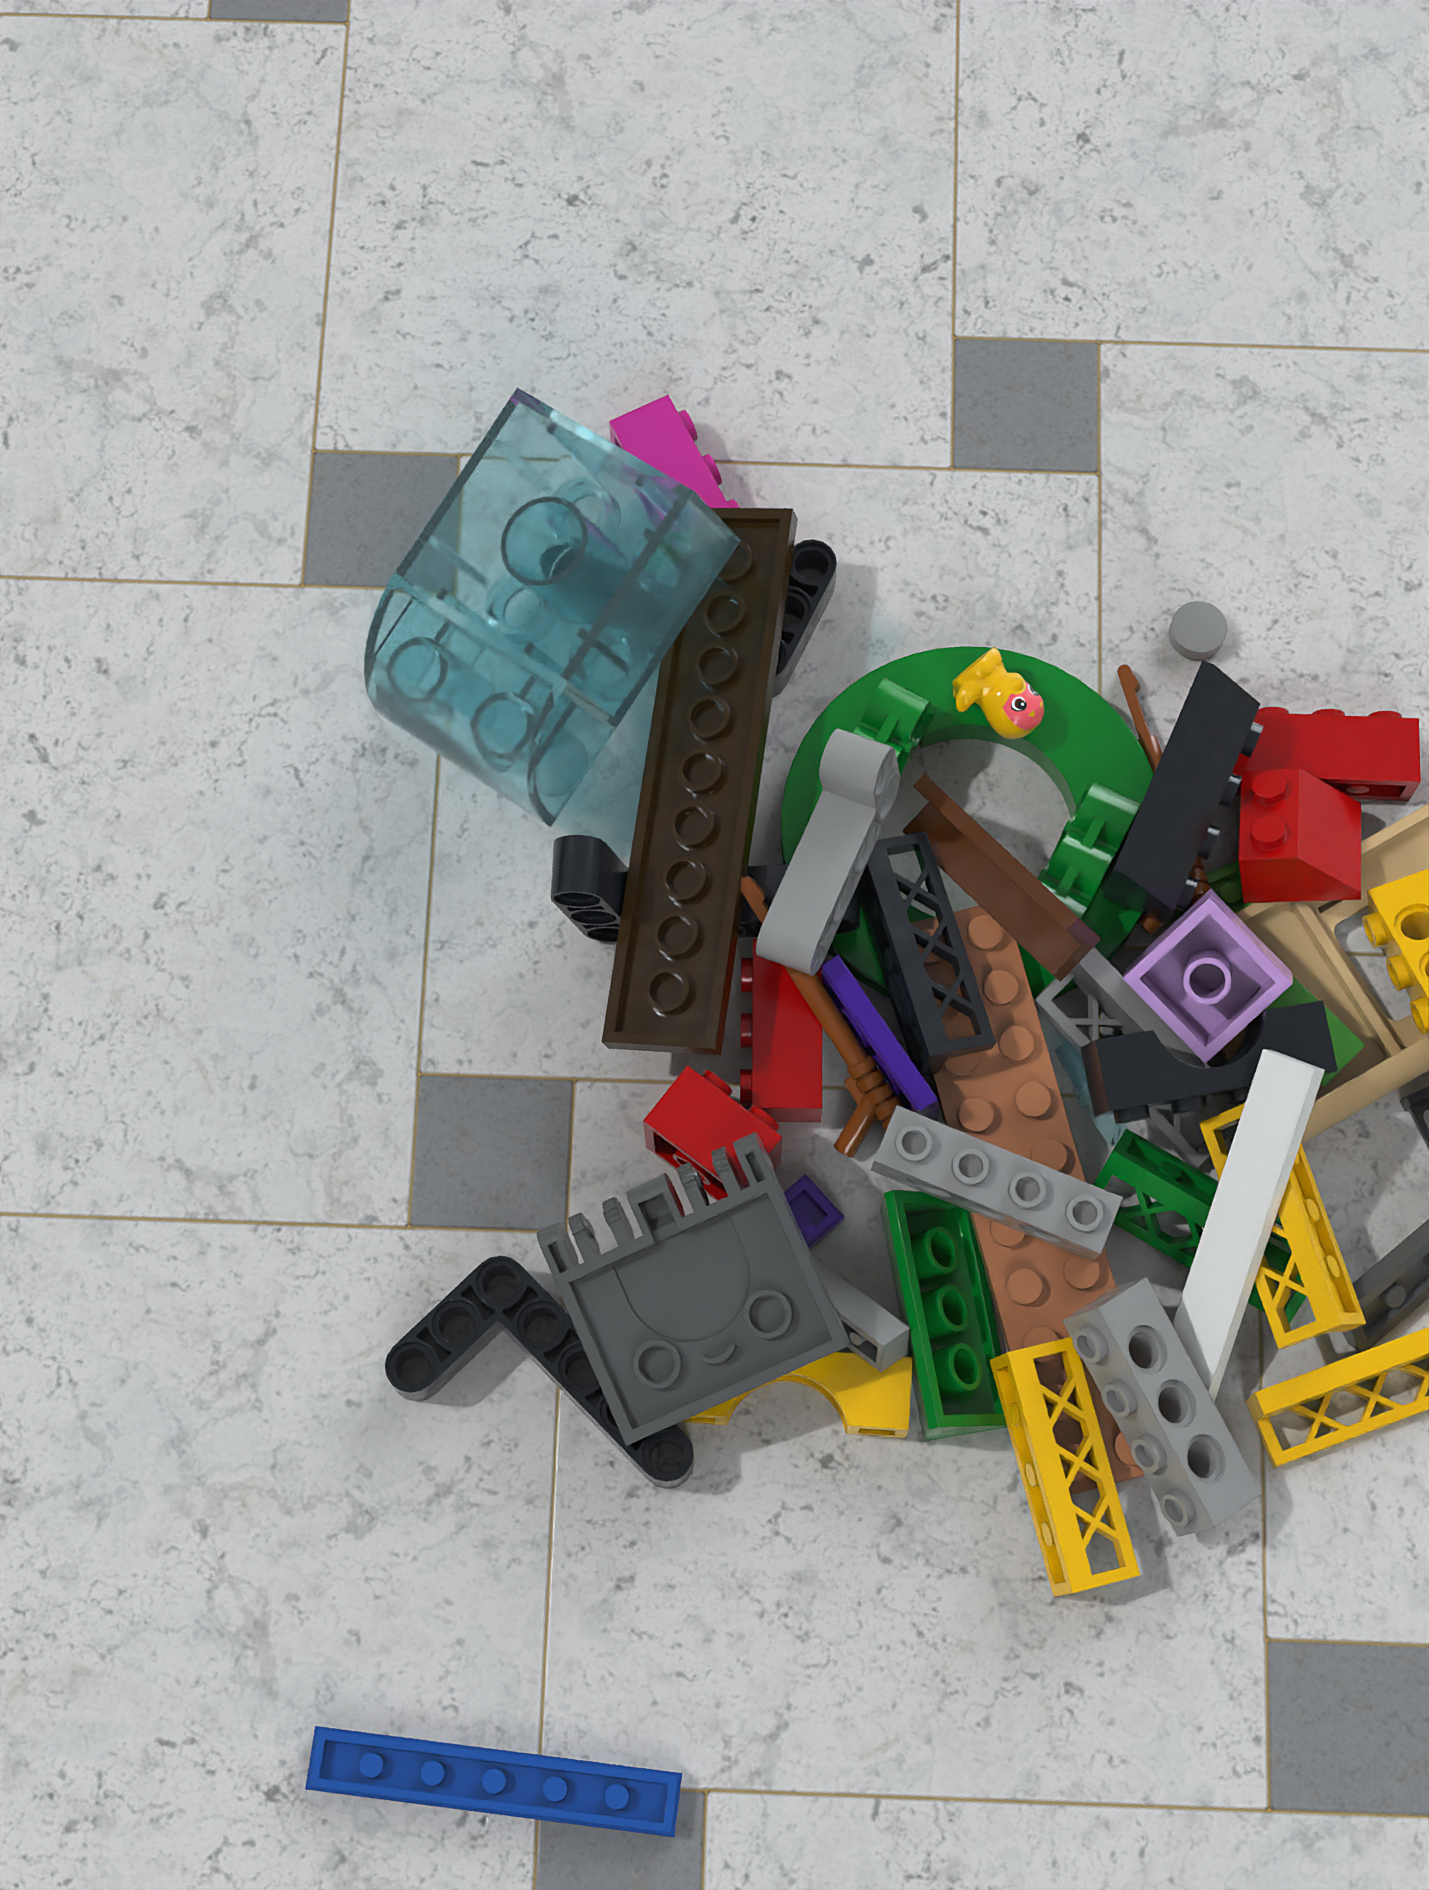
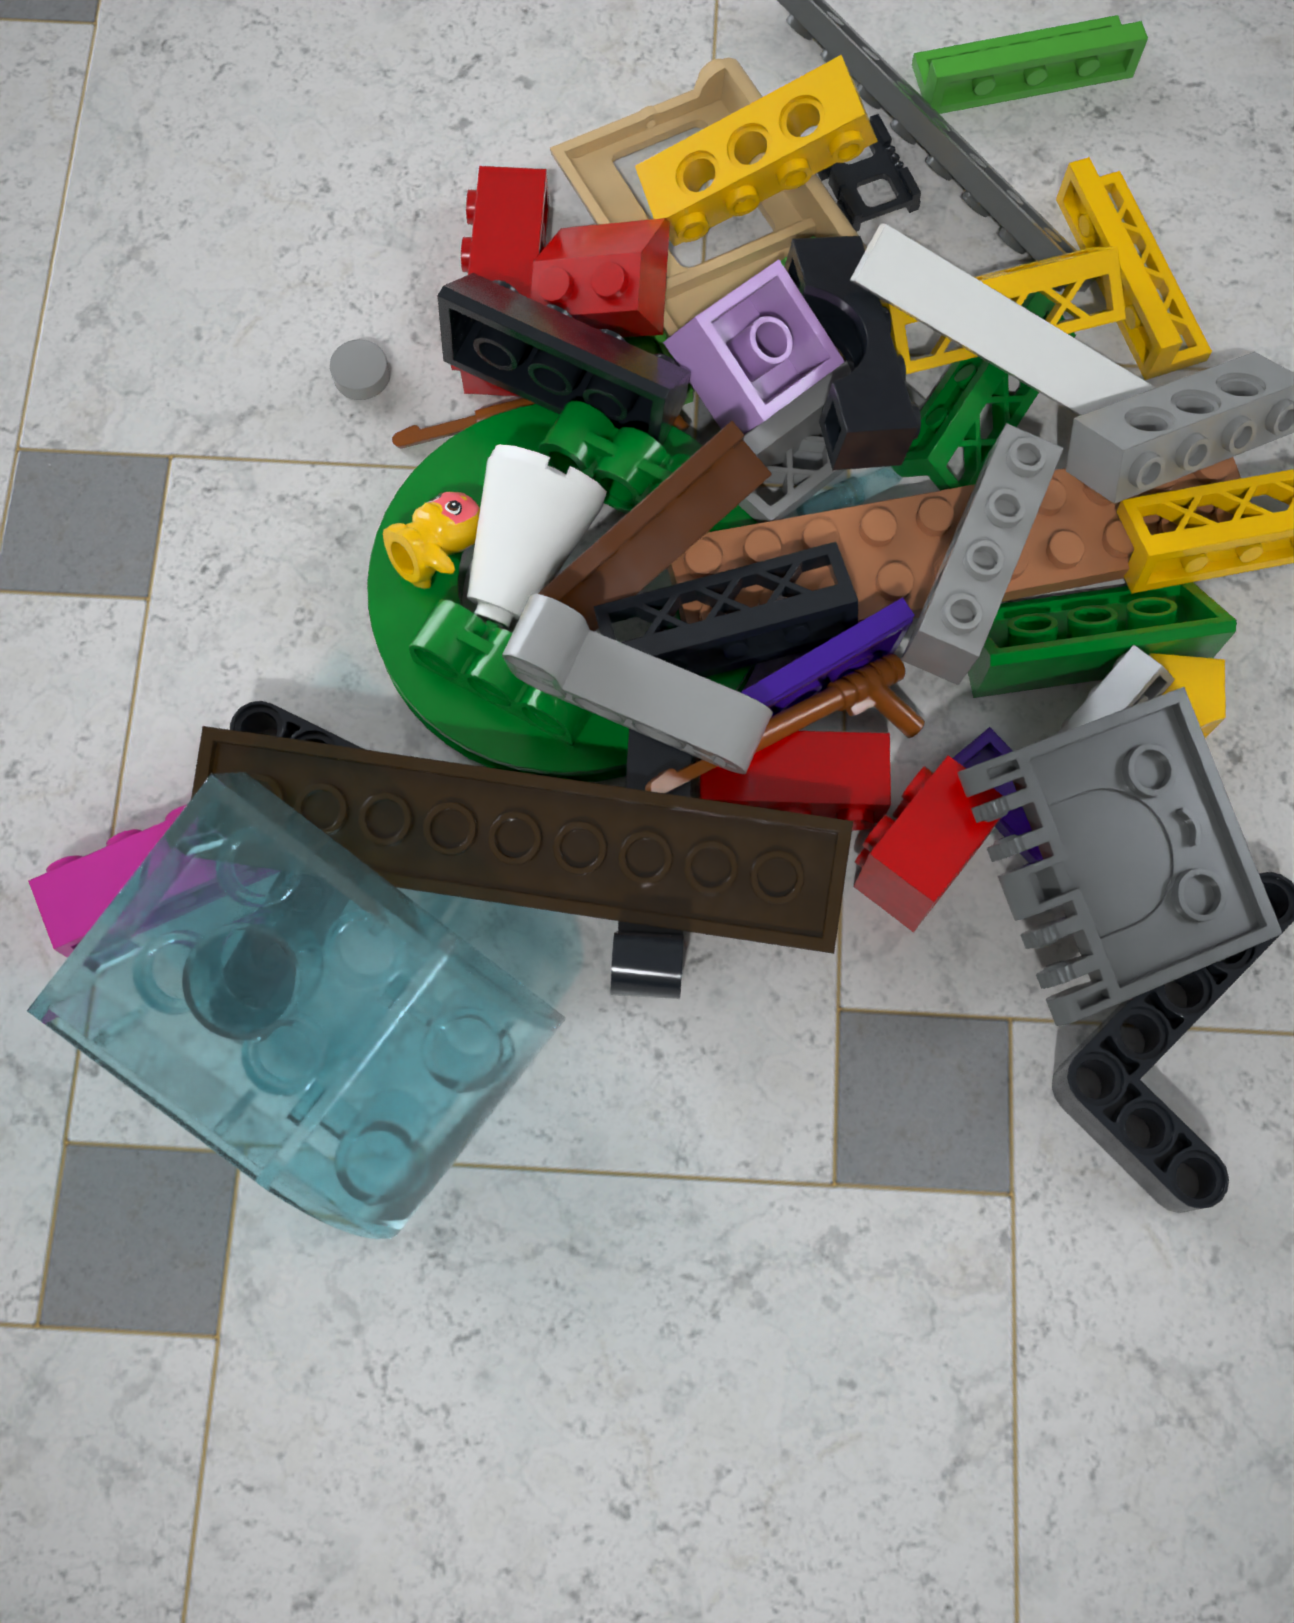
camera: 90 degrees left, 0 degrees up
(1001, 770) = (526, 529): none -> white cone

